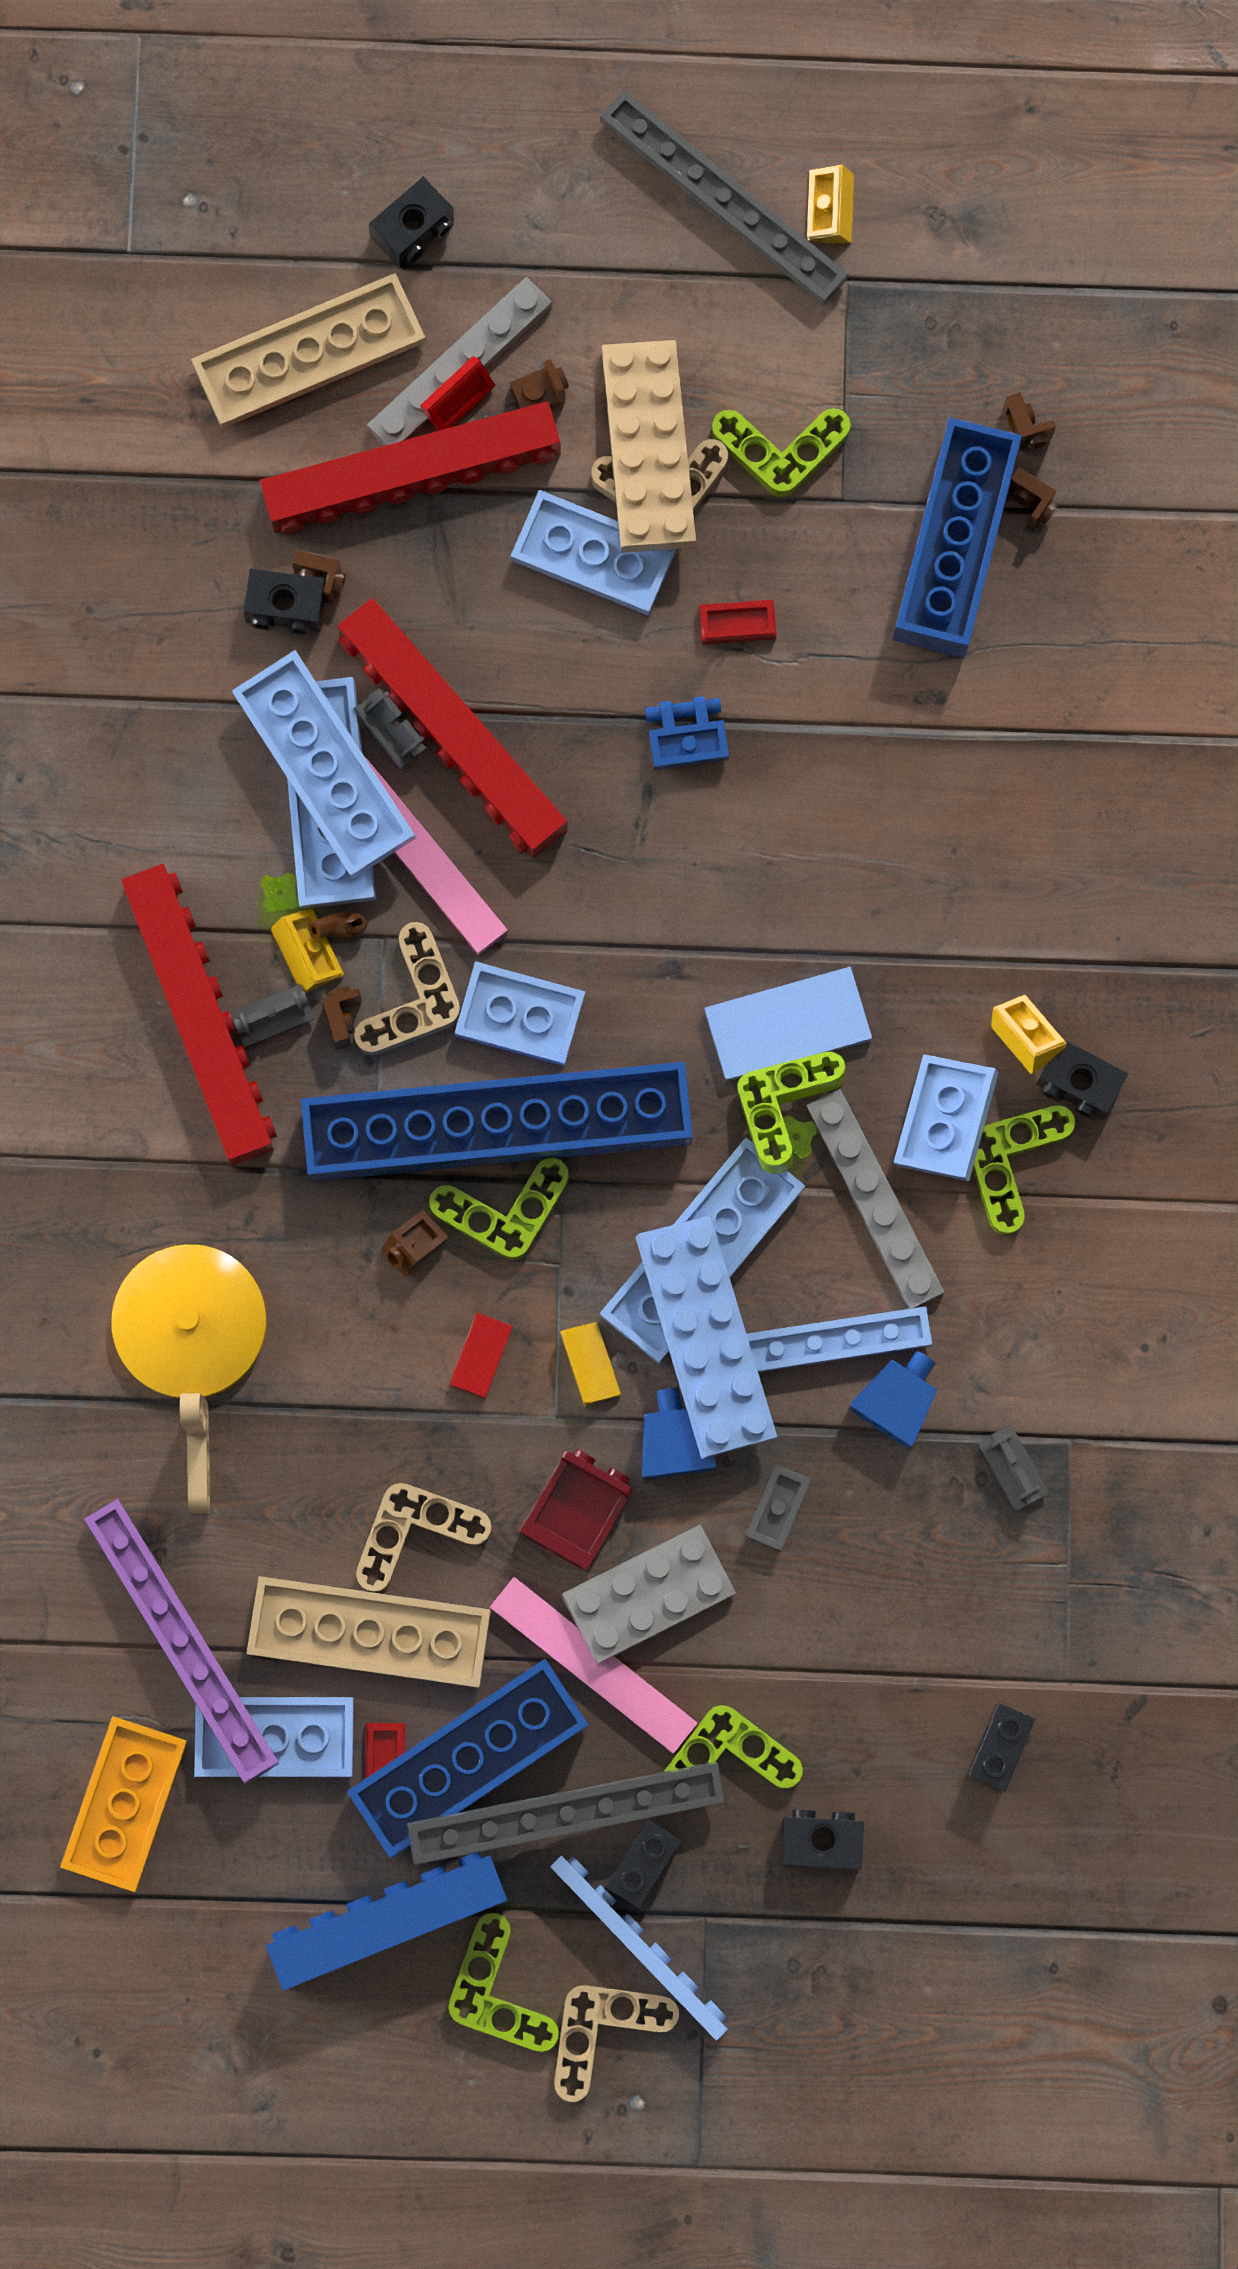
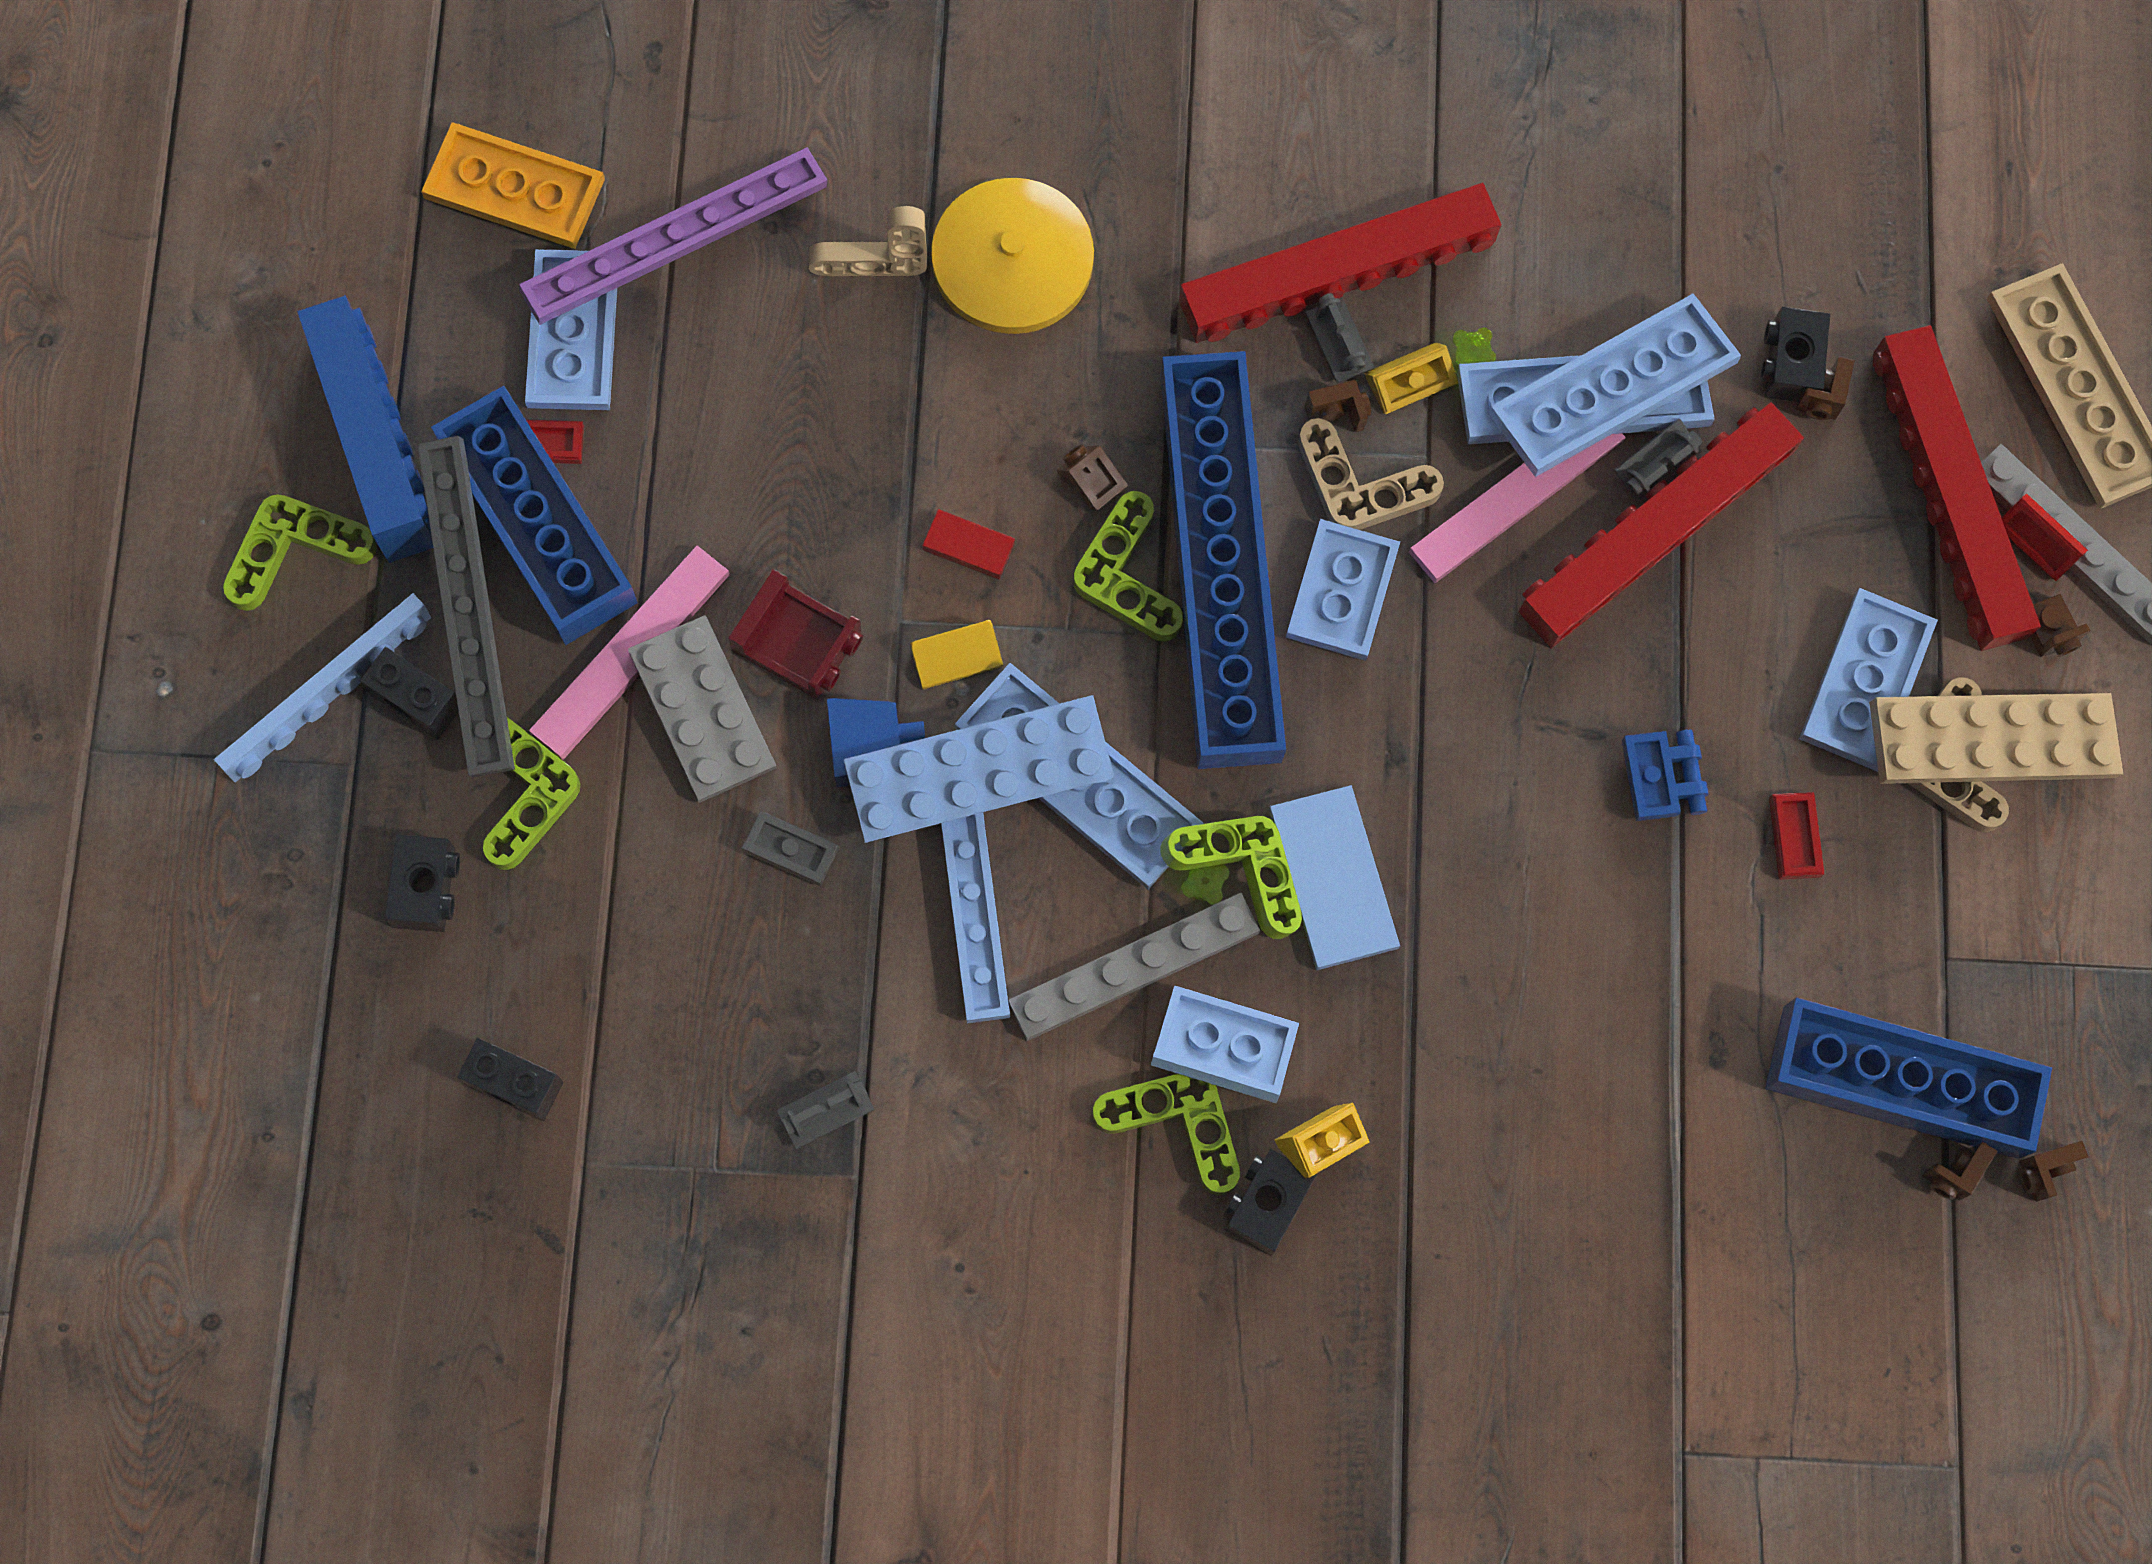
camera: 90 degrees right, 5 degrees down
(338, 924) = (1440, 406): reddish brown arm -> none
(368, 1632) = (676, 425): tan plate -> none
(402, 1523) = (793, 462): tan beam -> none
(602, 2015) = (257, 649): tan beam -> none
(776, 460) = (1987, 883): lime beam -> none
(898, 1399) = (905, 981): blue torso -> none

